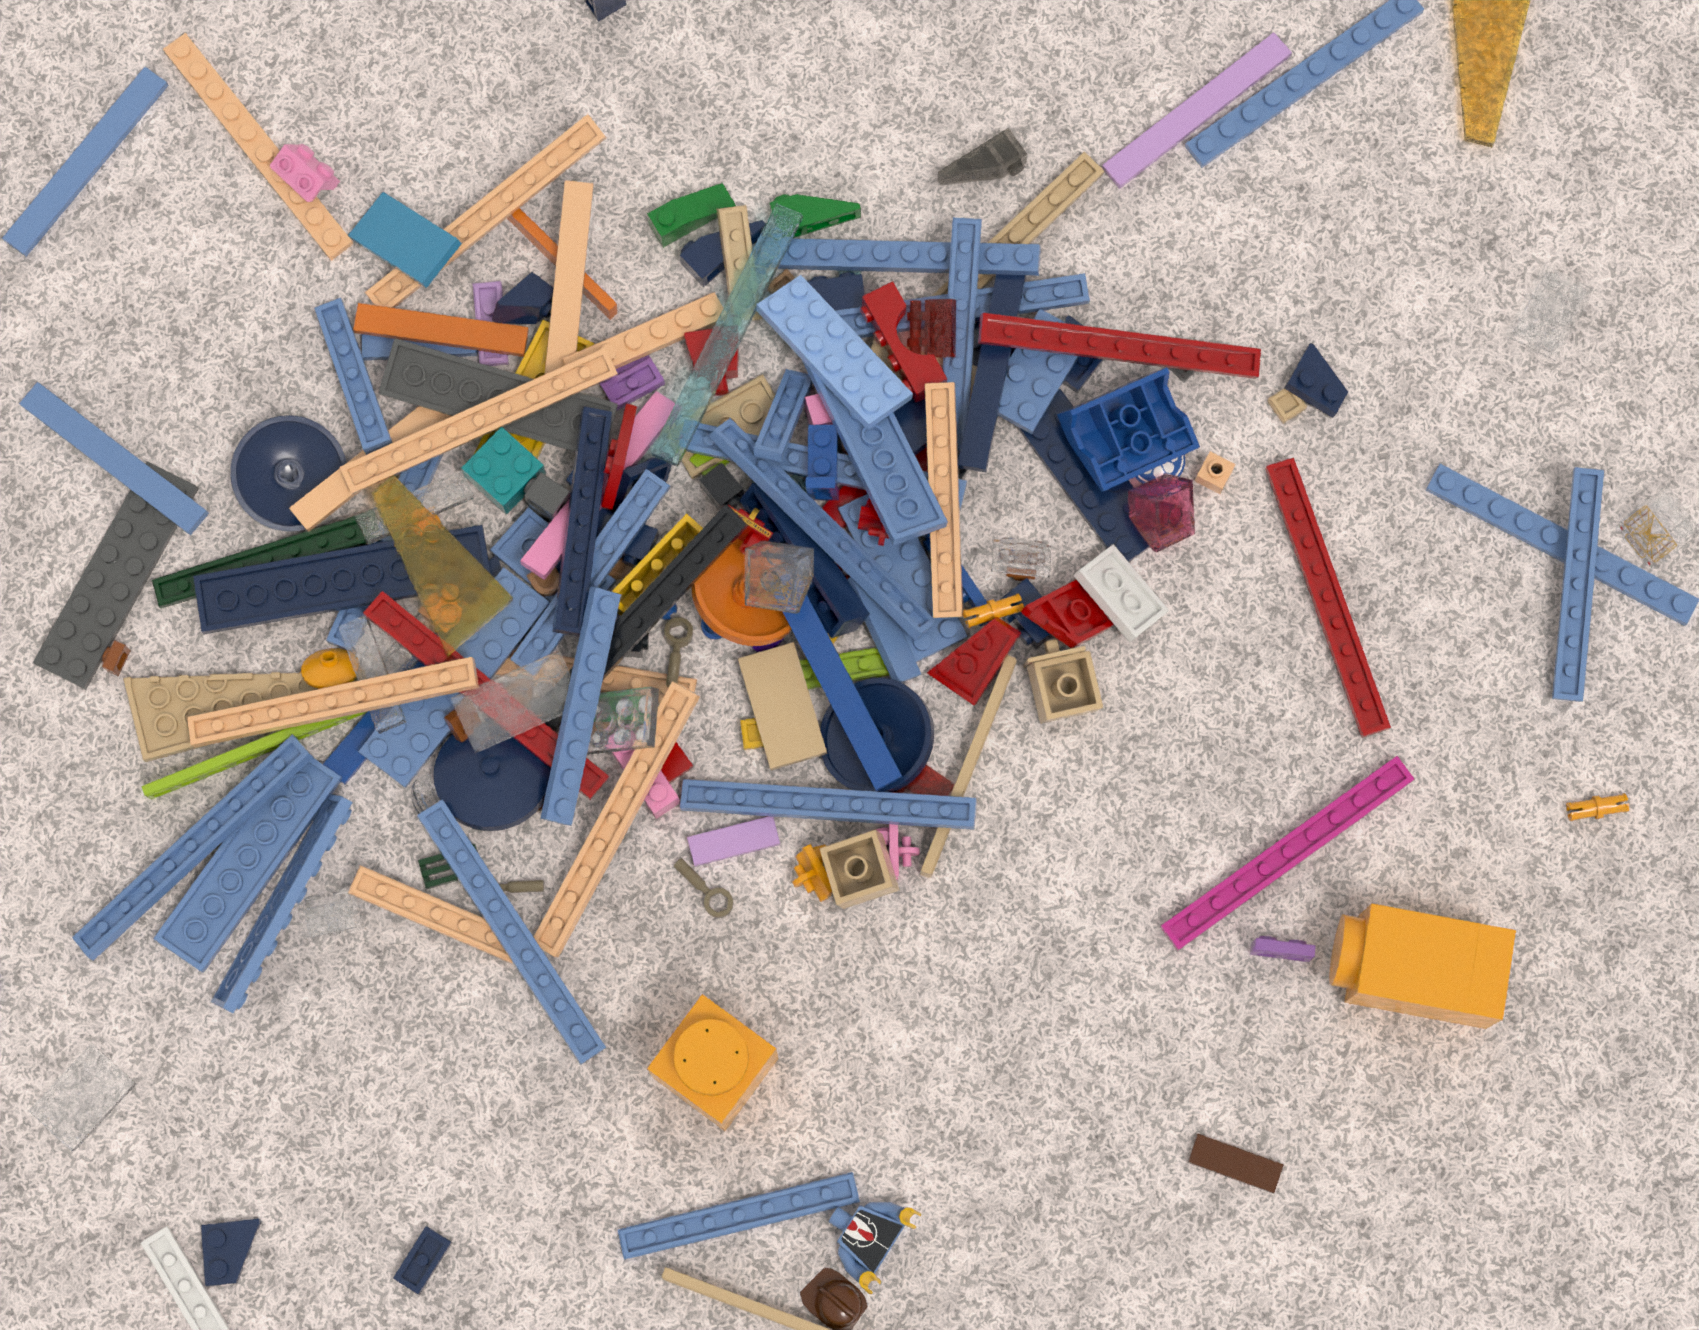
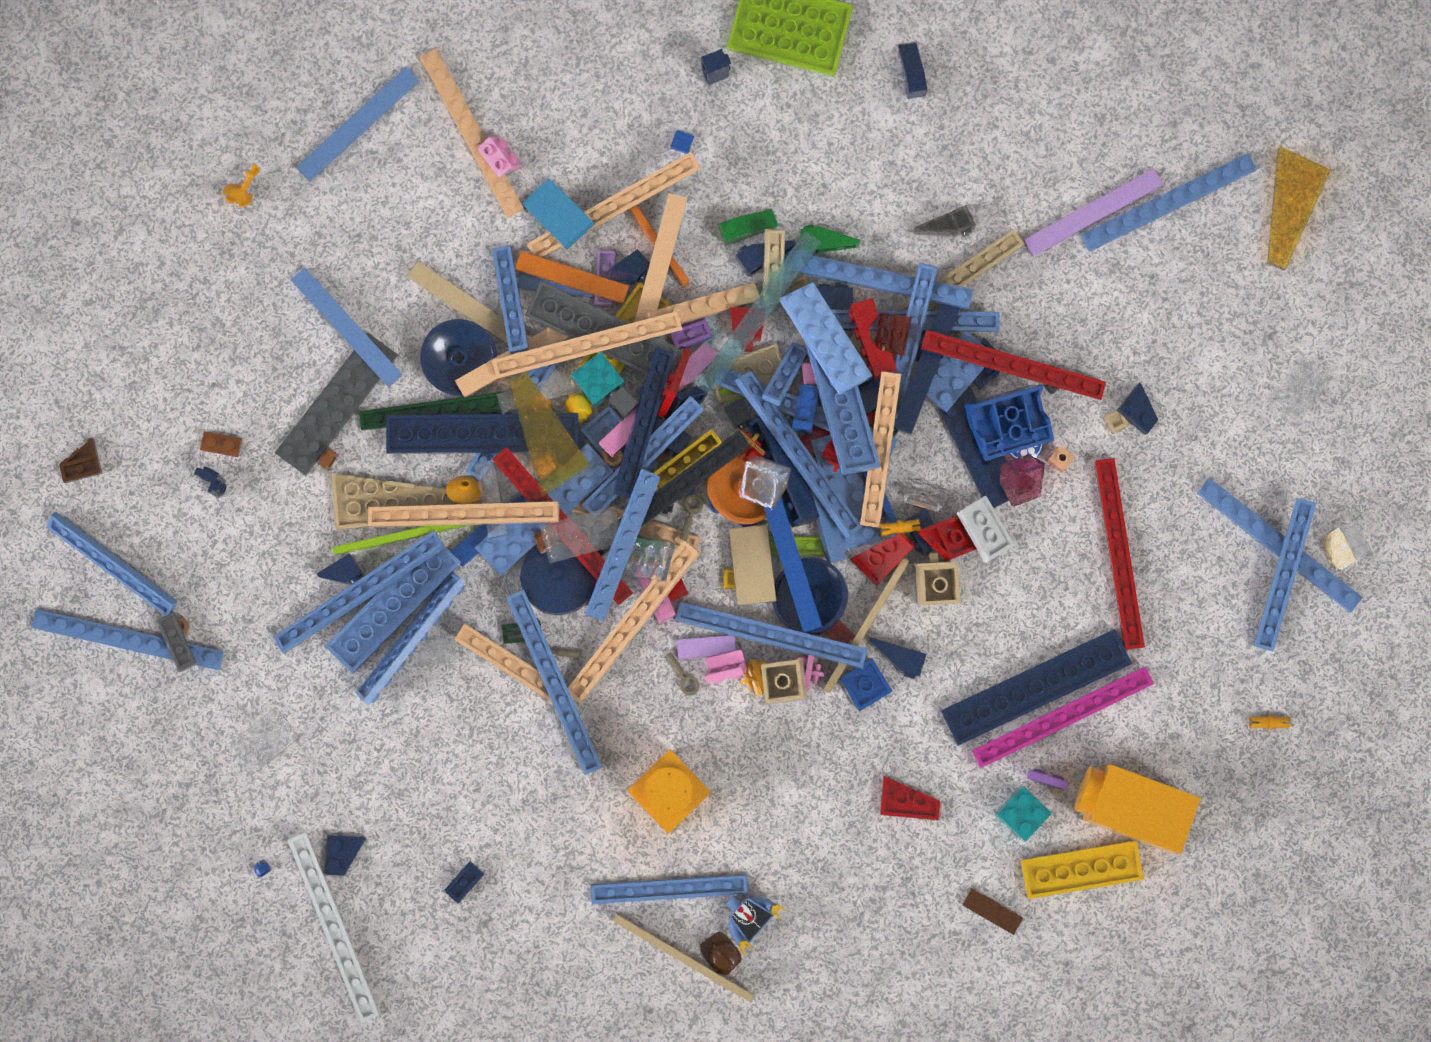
camera: 10 degrees right, 5 degrees up
(105, 1292) = (261, 868): none -> blue hinge
(162, 821) = (342, 571): none -> dark blue slope
(277, 392) = (459, 300): none -> tan tile
(483, 512) = (579, 404): none -> yellow head
(572, 107) = (682, 142): none -> blue tile
(766, 862) = (725, 666): none -> bright pink bracket
(983, 855) = (865, 685): none -> blue plate
(1032, 806) = (903, 659): none -> dark blue slope
(1077, 1021) = (906, 802): none -> red wing
(1239, 815) = (1036, 687): none -> dark blue plate
(1255, 1007) = (1023, 813): none -> teal brick
(1358, 1076) = (1082, 869): none -> yellow plate

